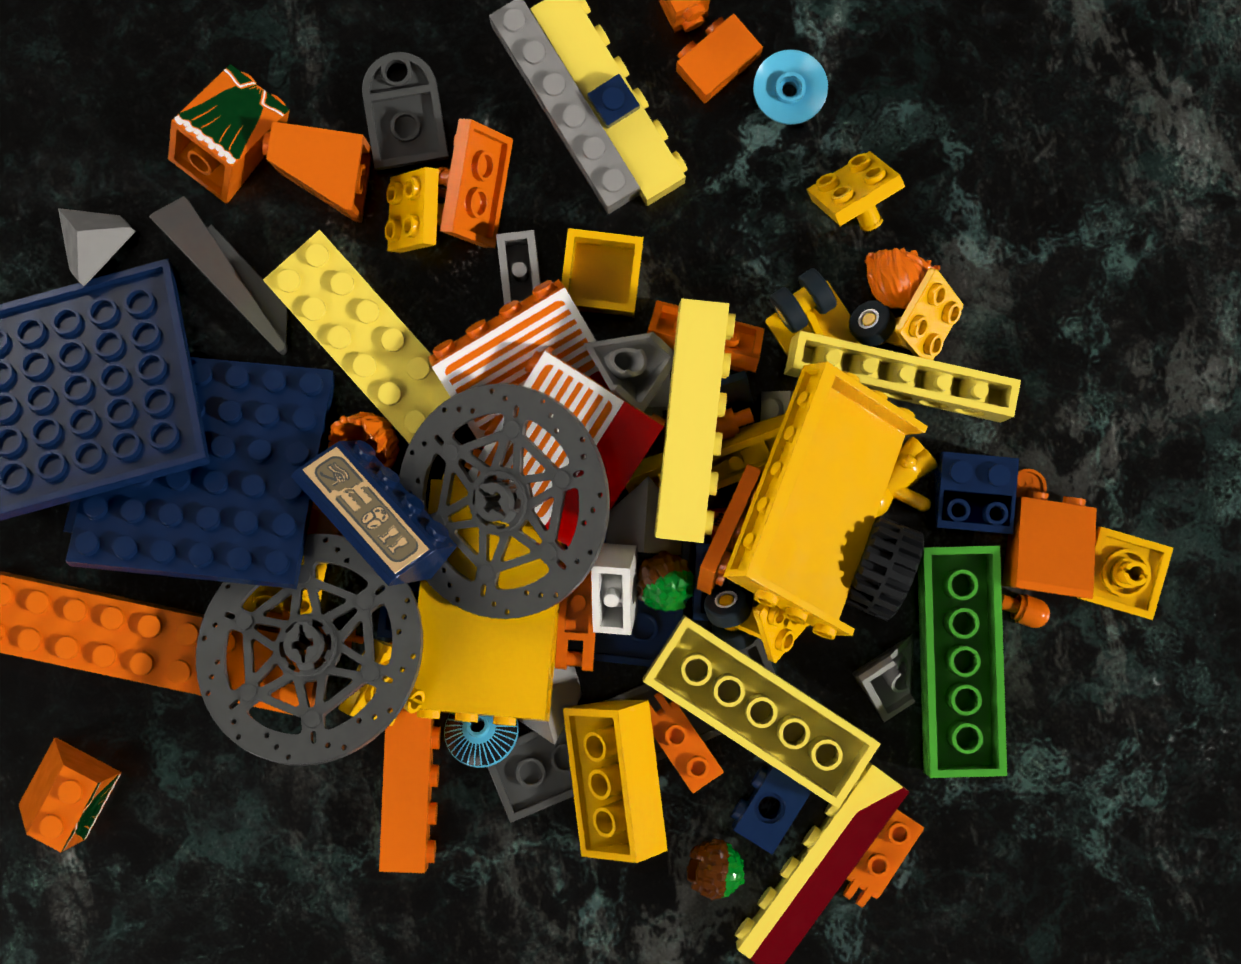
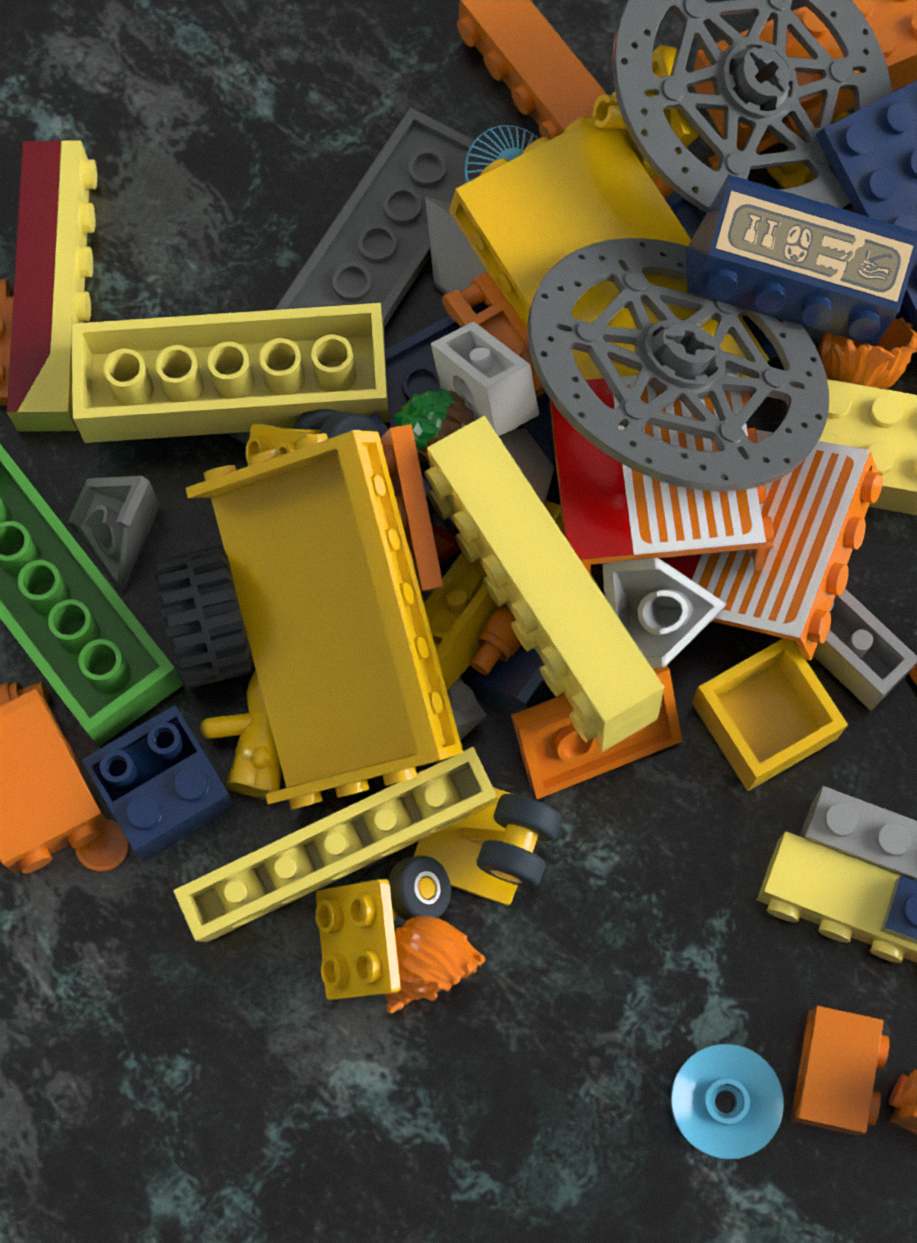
camera: 140 degrees right, 15 degrees down
(615, 780) = (332, 209): yellow slope -> none
(683, 745) = (272, 286): orange hinge -> none
(715, 869) = (161, 204): reddish brown piece -> none
(763, 829) = (144, 278): dark blue brick -> none
(856, 190) = (554, 1028): yellow plate -> none

